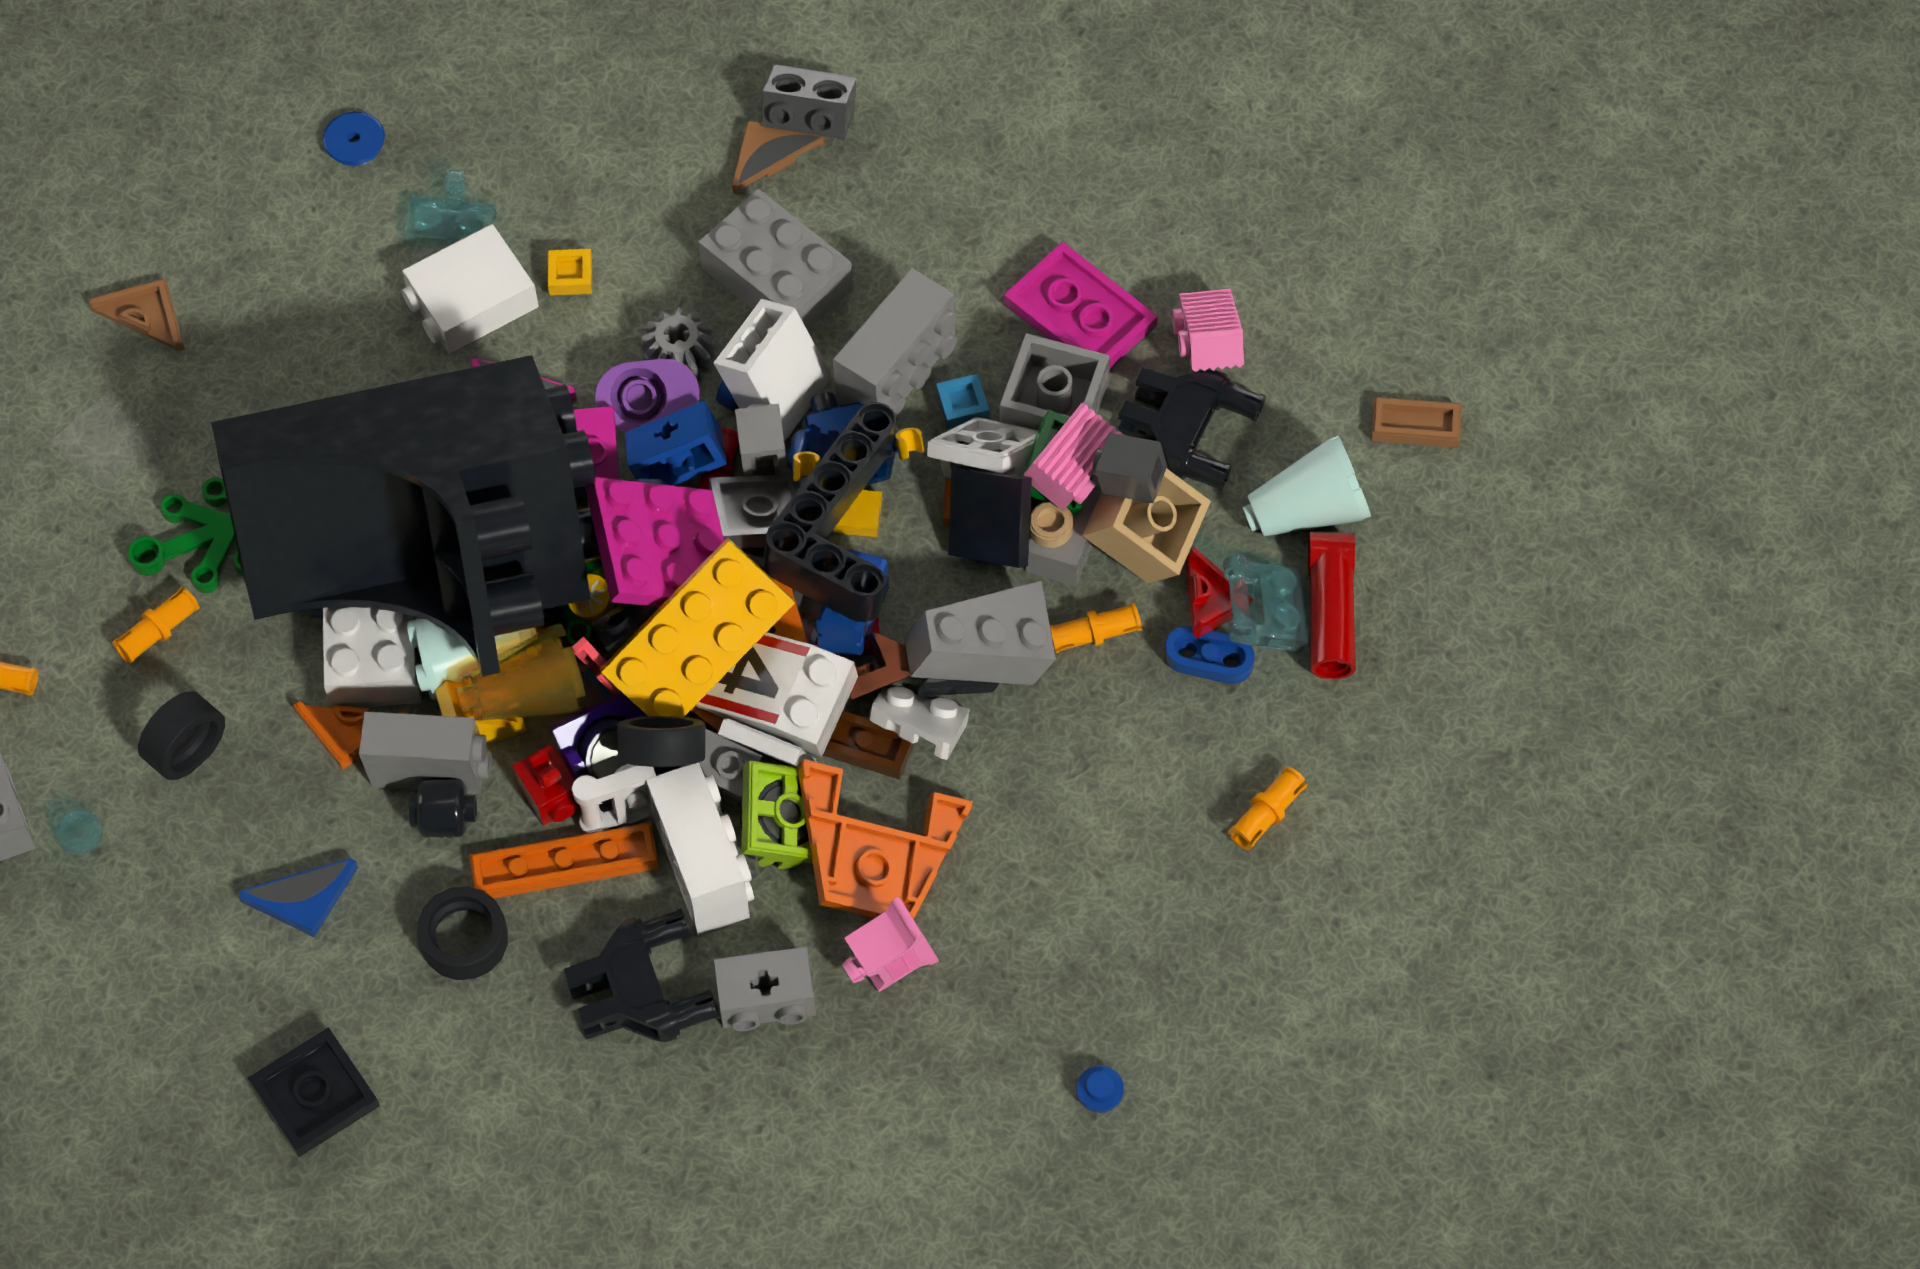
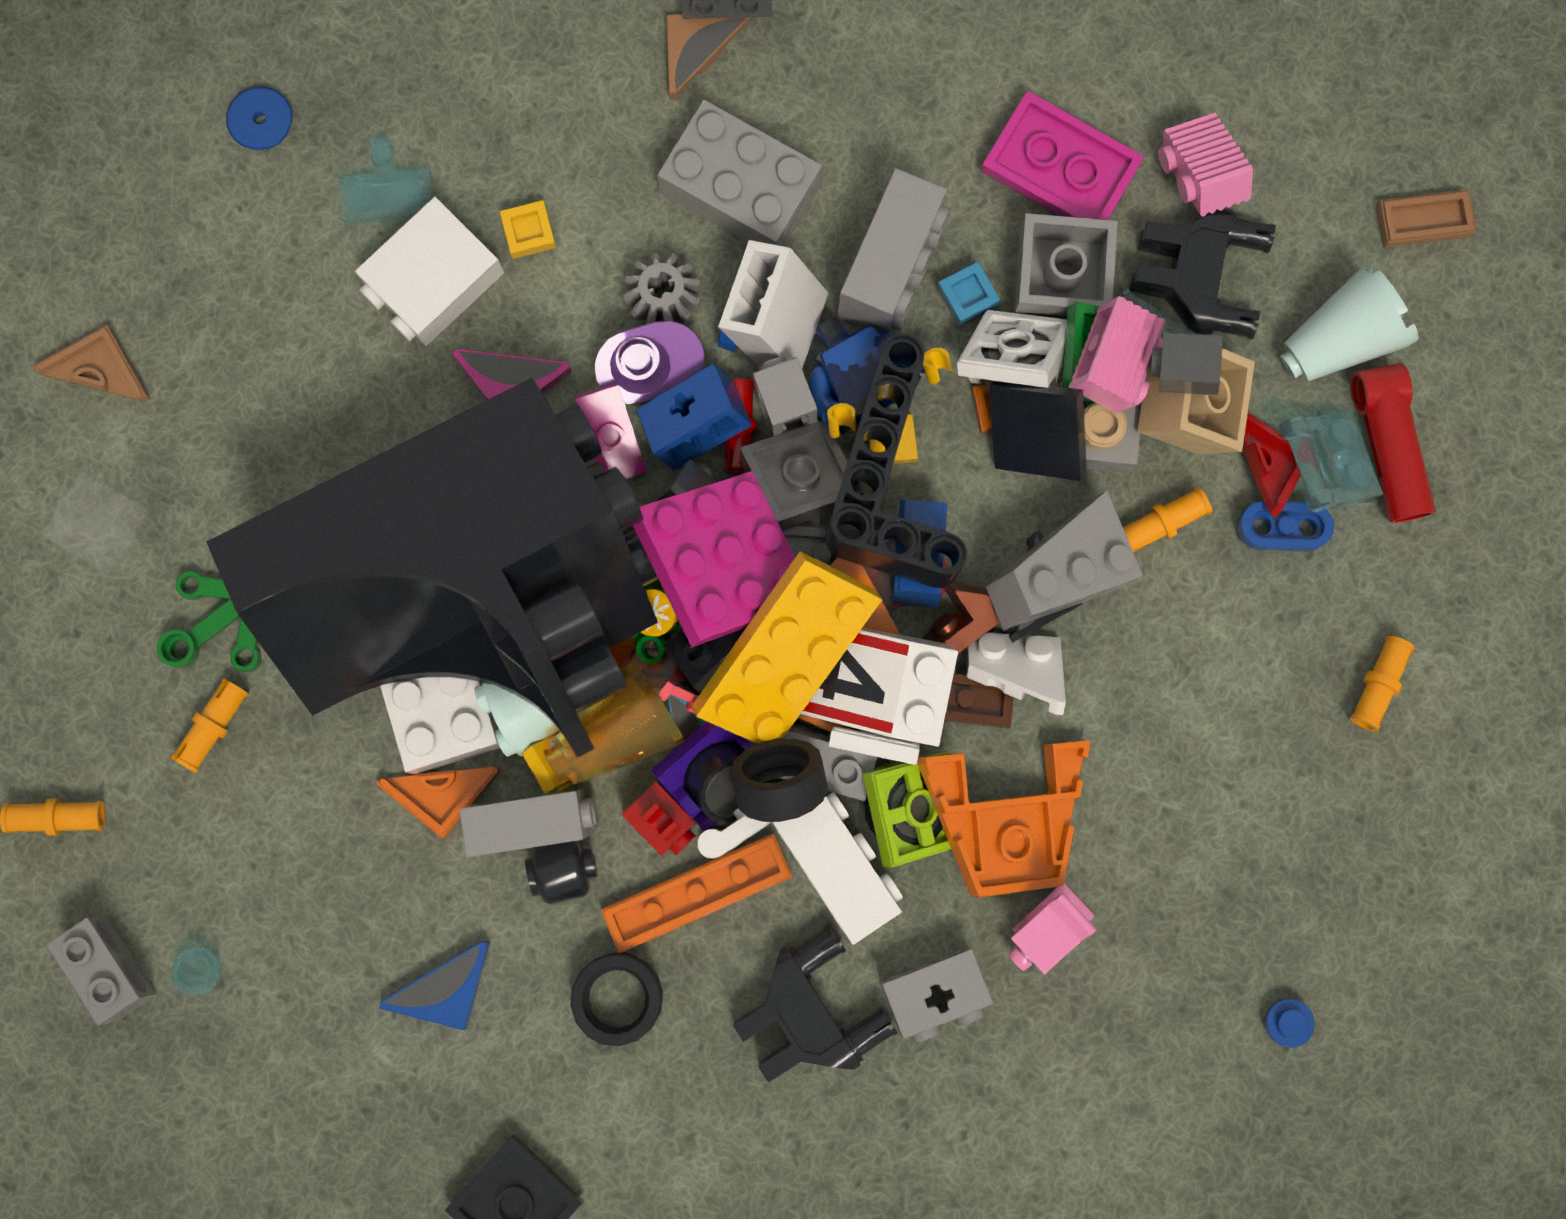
camera: 15 degrees left, 20 degrees up
(181, 735) = (271, 853): black tyre -> none

